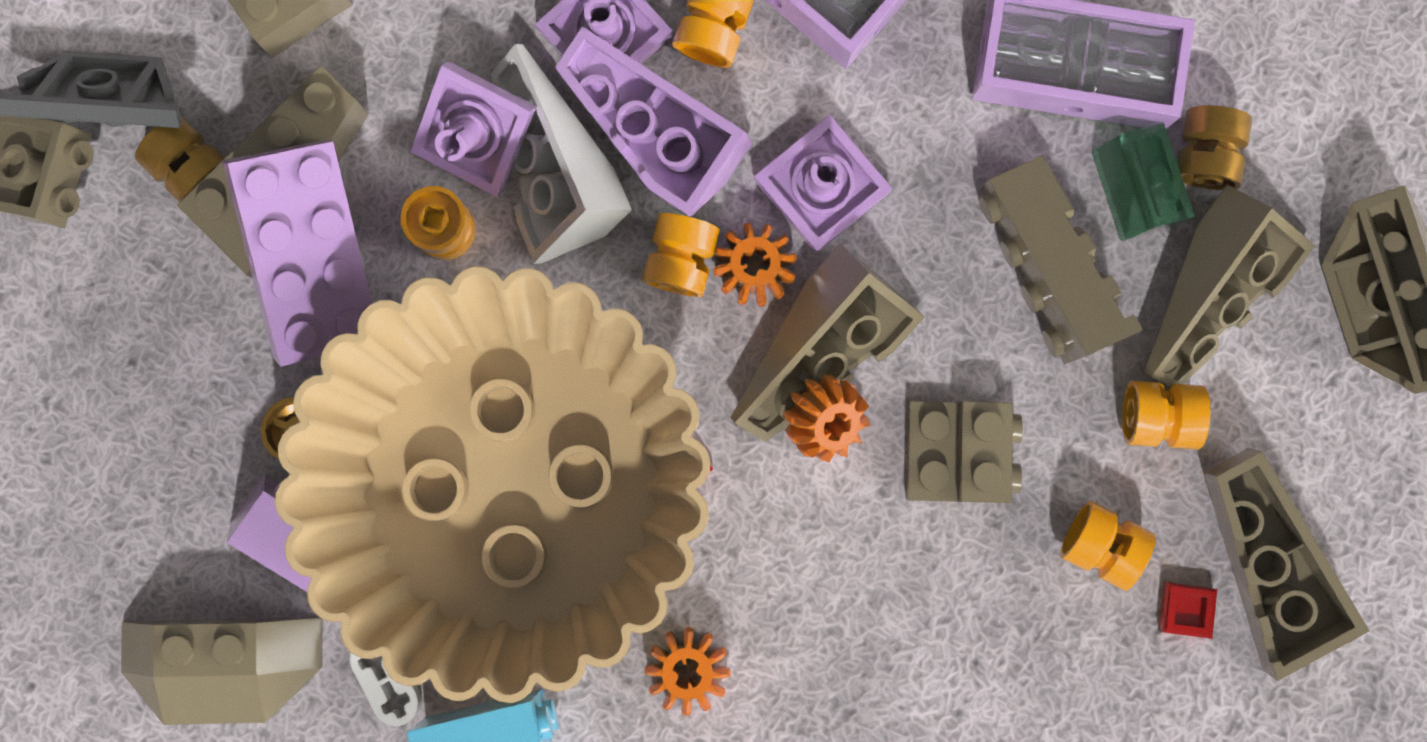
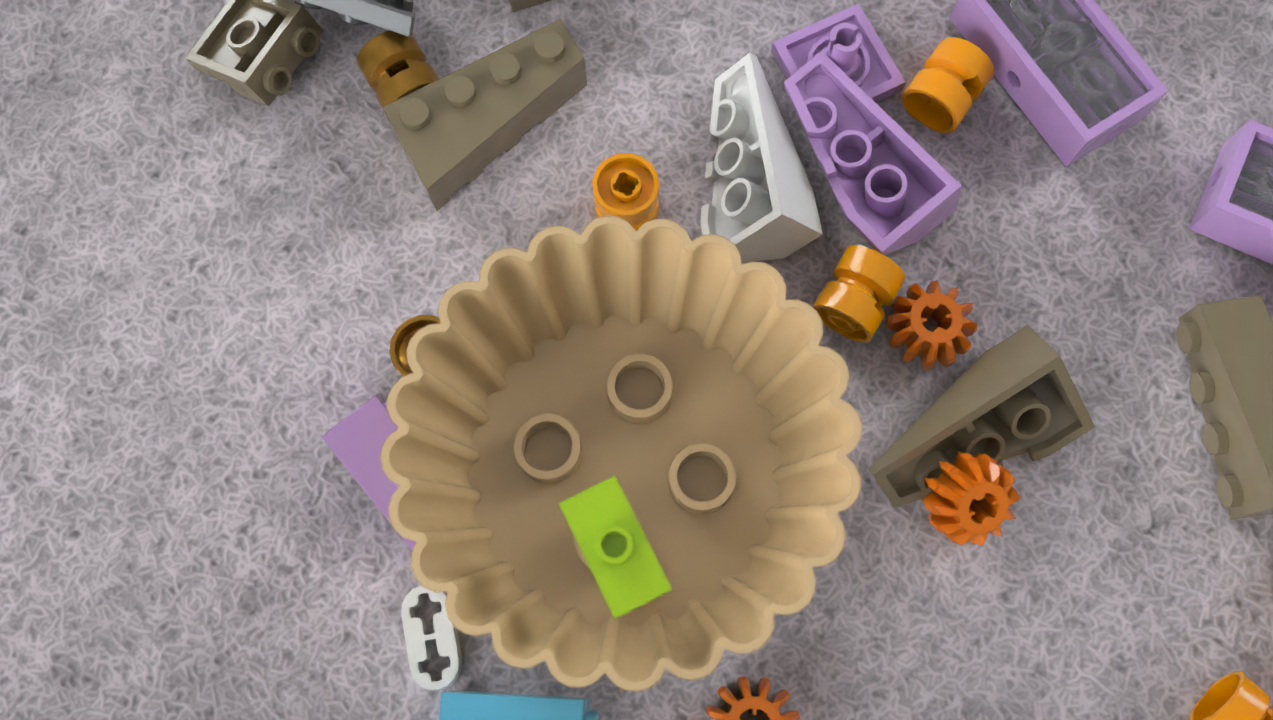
camera: 20 degrees right, 10 degrees down
(220, 666) = (270, 571): dark tan wedge -> none
(299, 246) = (486, 167): lavender brick -> none
(472, 128) = (686, 118): lavender plate -> none
(512, 576) = (615, 547): none -> lime plate
(822, 184) = (1019, 267): lavender plate -> none
(962, 451) = (1106, 579): dark tan plate -> none

